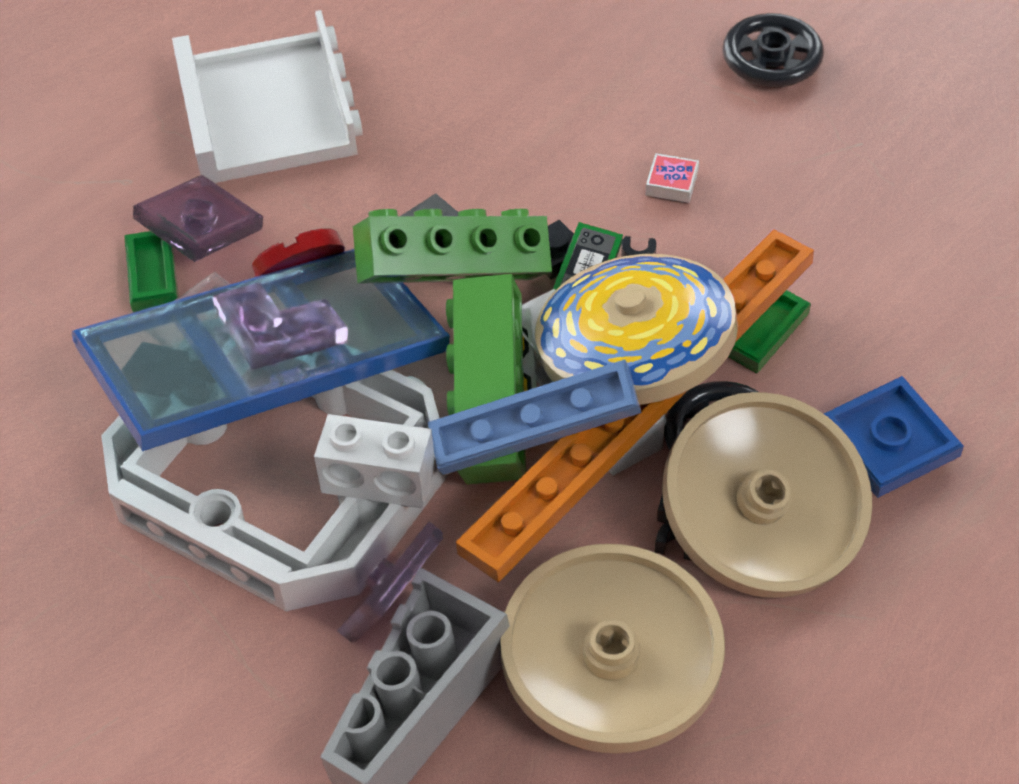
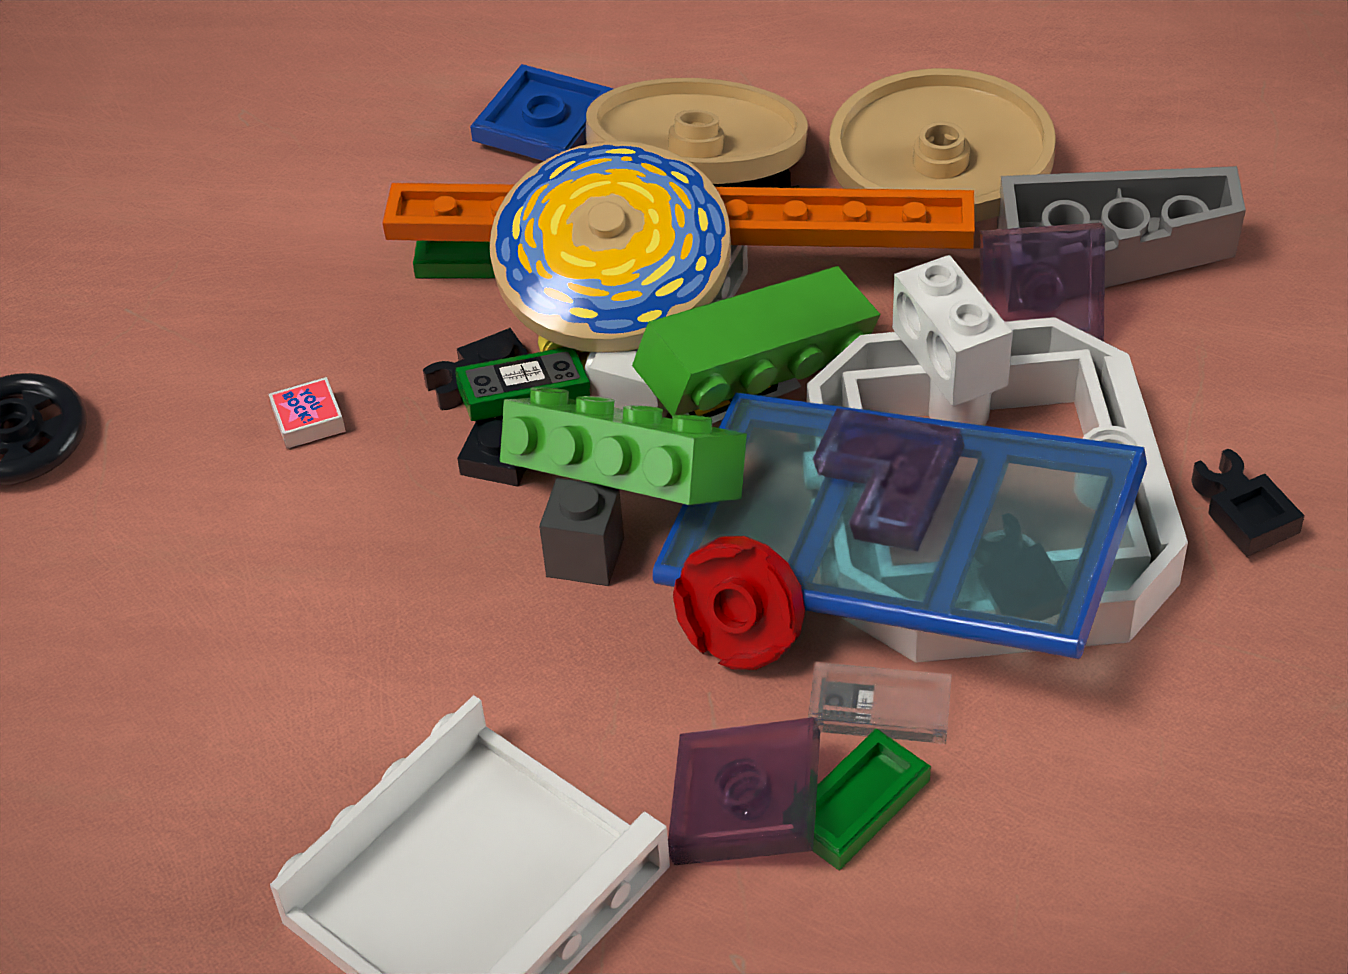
camera: 125 degrees left, 5 degrees down
(115, 581) = (1248, 511): none -> black plate
(534, 417) = (794, 248): medium blue tile -> none

